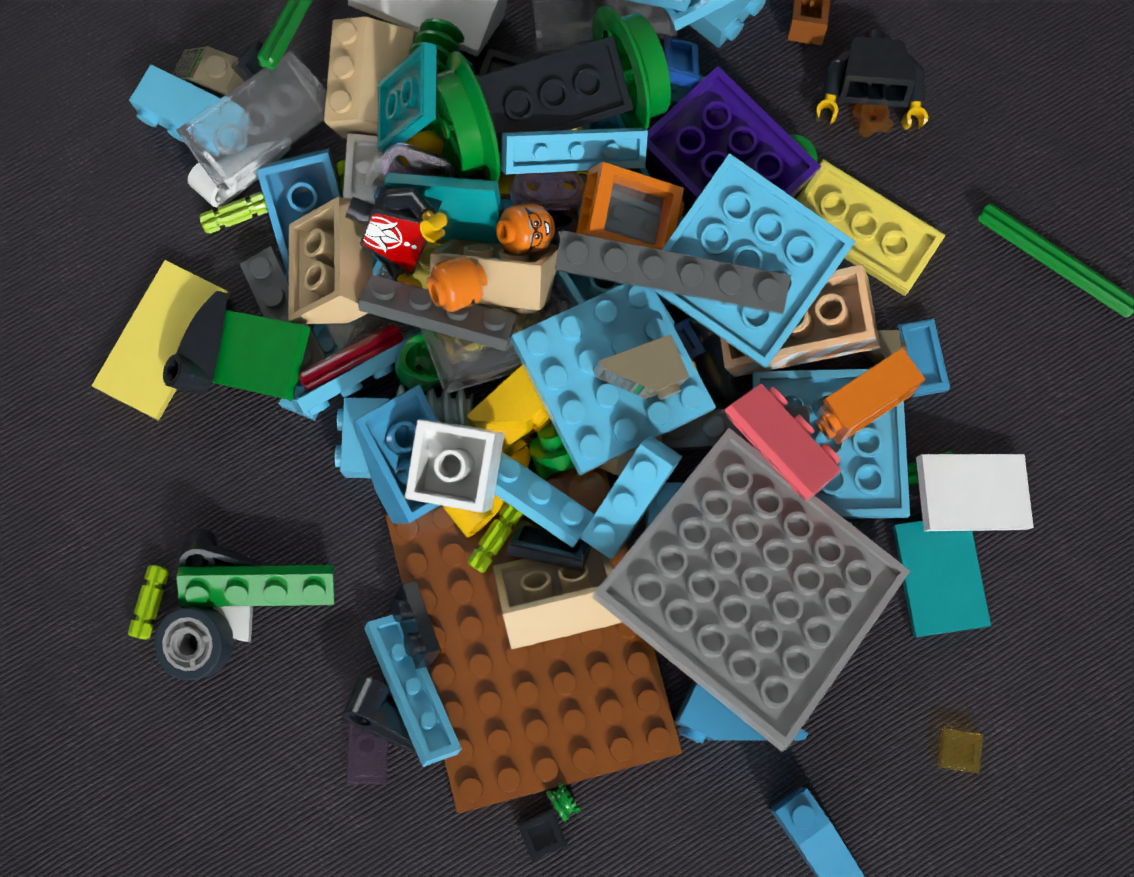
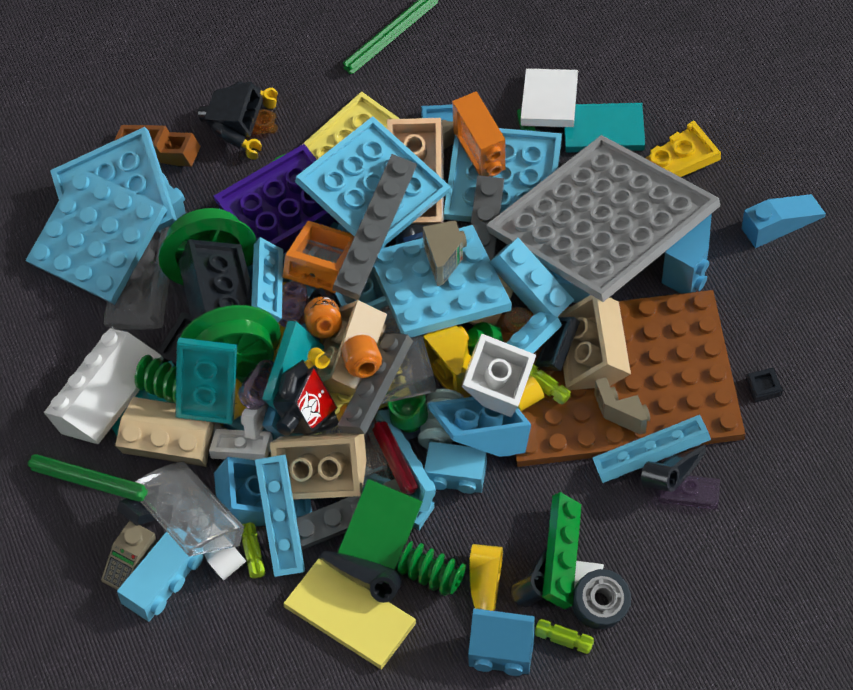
camera: 80 degrees left, 20 degrees down
(120, 524) = (501, 642): none -> dark azure slope
(217, 427) = (430, 570): none -> green piece
(226, 494) = (485, 575): none -> yellow piece
(262, 230) = (280, 515): none -> medium azure plate
(419, 635) = (605, 439): black plate -> none
(455, 653) = (624, 412): none -> dark tan slope
(562, 802) = (741, 365): green bush -> none
(784, 441) = (506, 185): coral slope -> none
(903, 687) = (686, 151): none -> yellow wing
(960, 750) = (724, 132): clear yellow tile -> none

